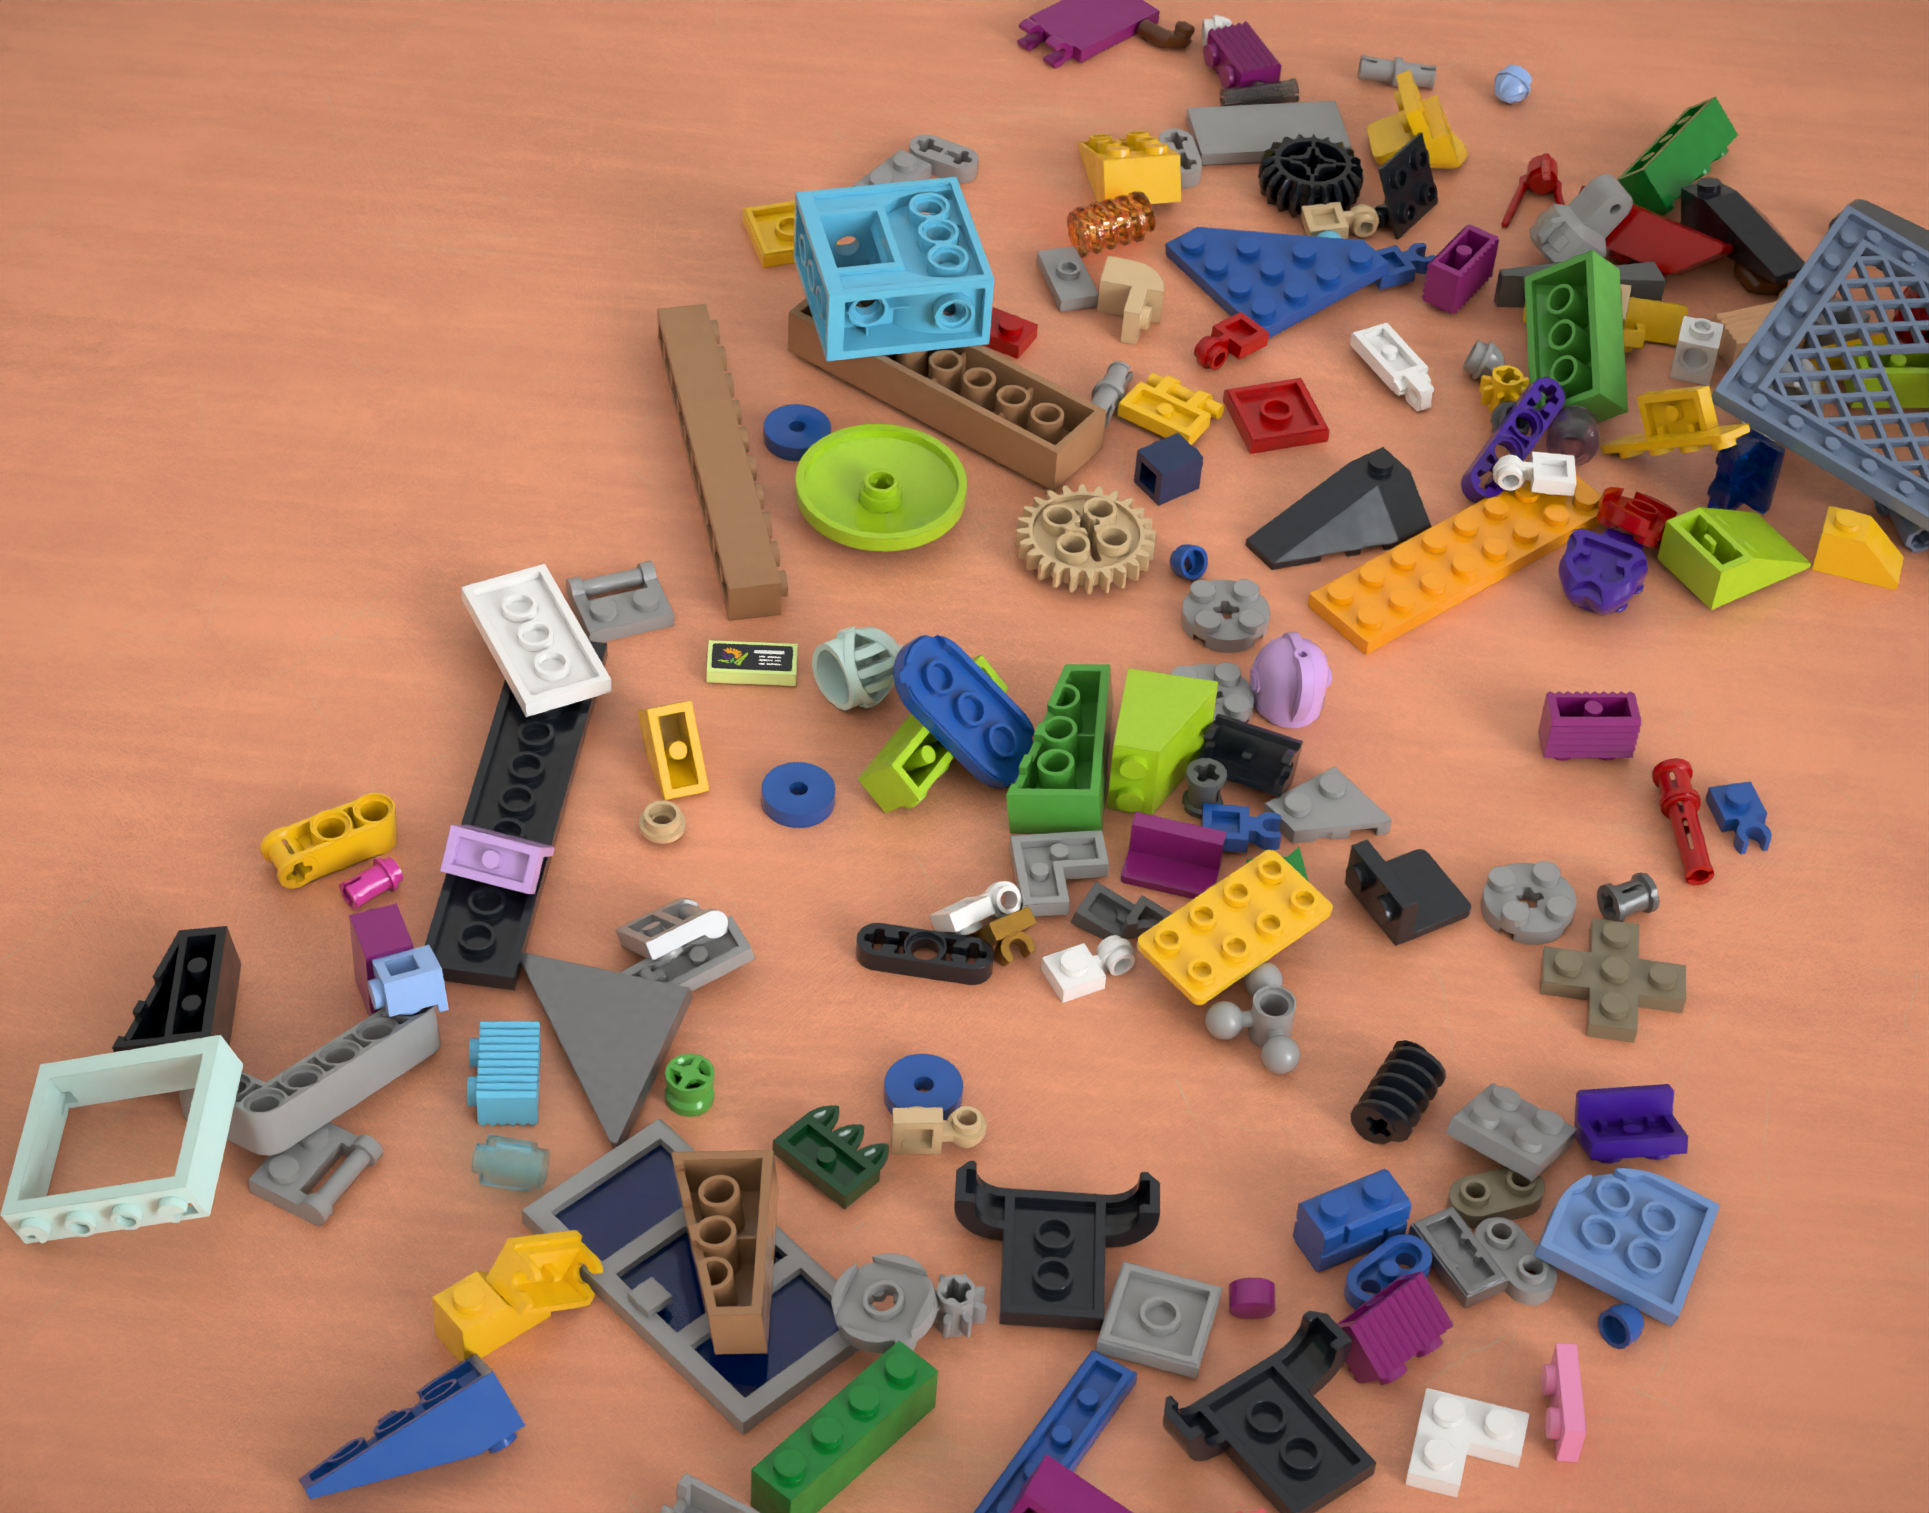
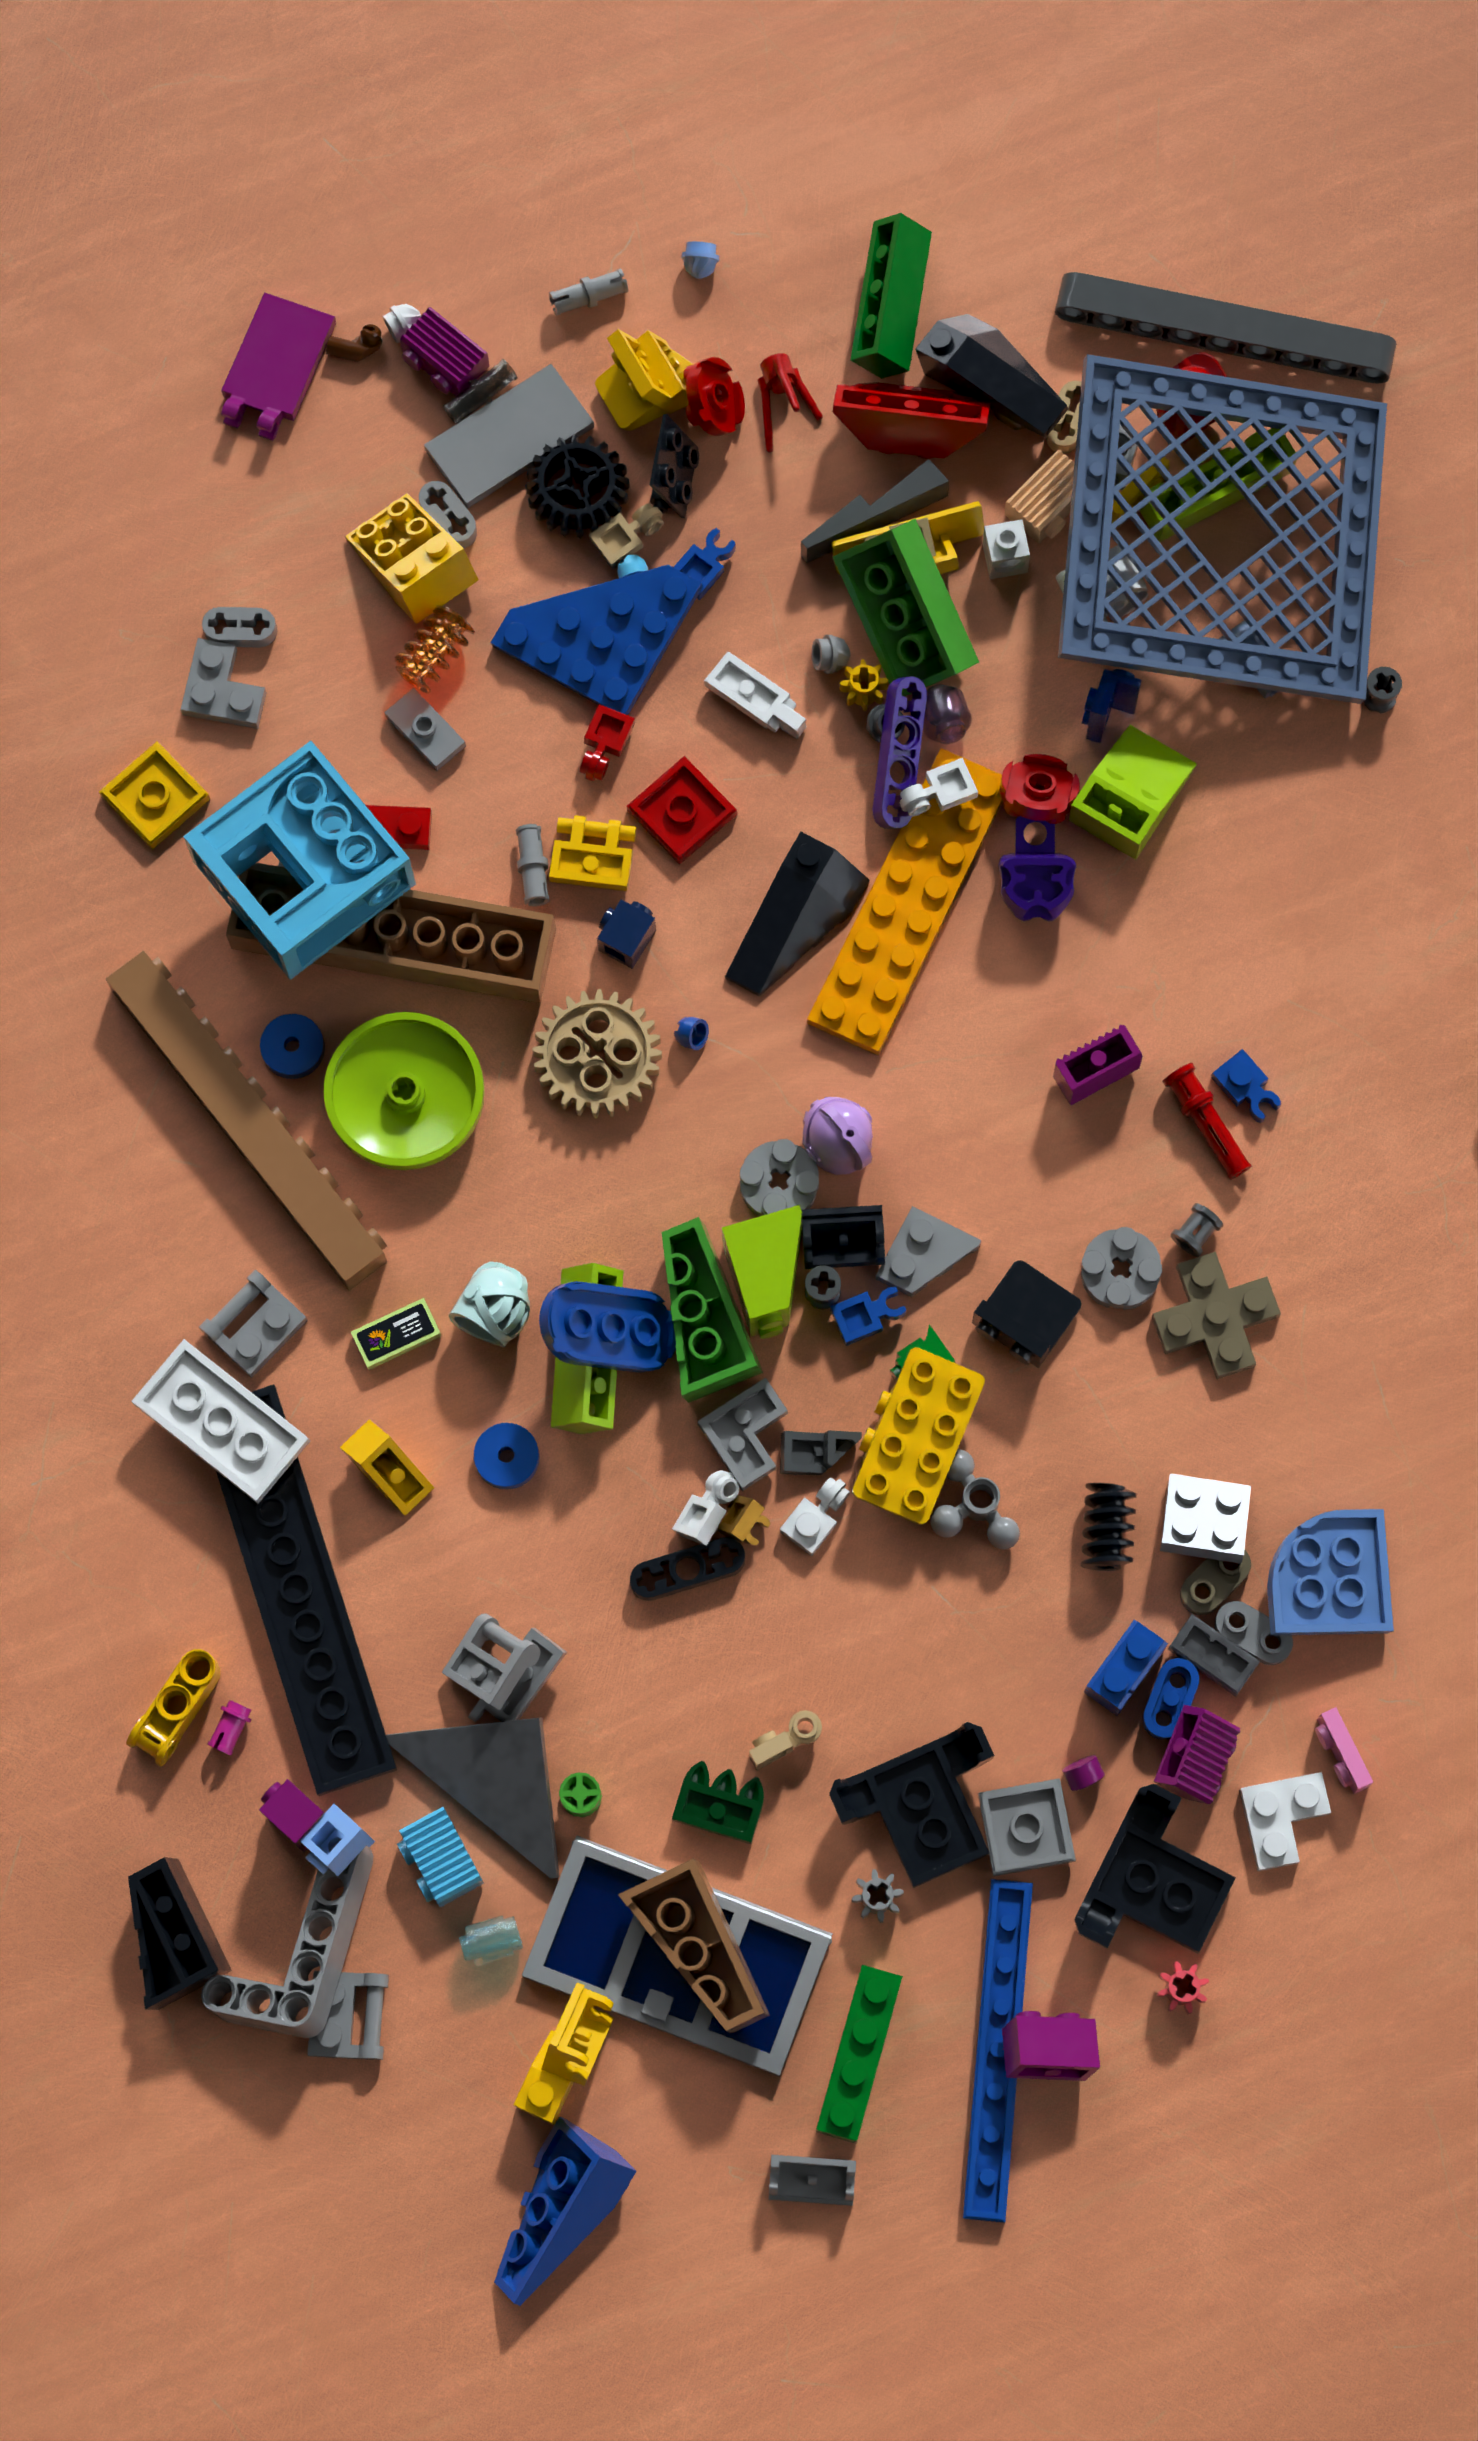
camera: 20 degrees left, 30 degrees up
(196, 1063) = (273, 2063): light aqua window -> none
(494, 858) = (319, 1663): lavender panel -> none
(662, 822) = (414, 1533): tan plate -> none
(886, 1276) = (817, 1950): light grey plate -> none
(923, 1072) = (752, 1721): blue piece -> none
(1131, 292) = (494, 723): tan brick -> none
(1172, 856) = (831, 1374): magenta panel -> none
(1238, 598) = (742, 1097): light grey plate -> none
(1460, 269) = (764, 552): magenta brick -> none
(1471, 159) = (713, 397): none -> red plate
(1584, 223) = (846, 460): light grey piece -> none
(1620, 1325) = (1354, 1655): blue hinge -> none
(1628, 1123) = (1288, 1467): dark purple bracket -> none
(1675, 420) = (1036, 686): yellow bracket -> none
(1857, 549) = (1230, 731): yellow slope -> none

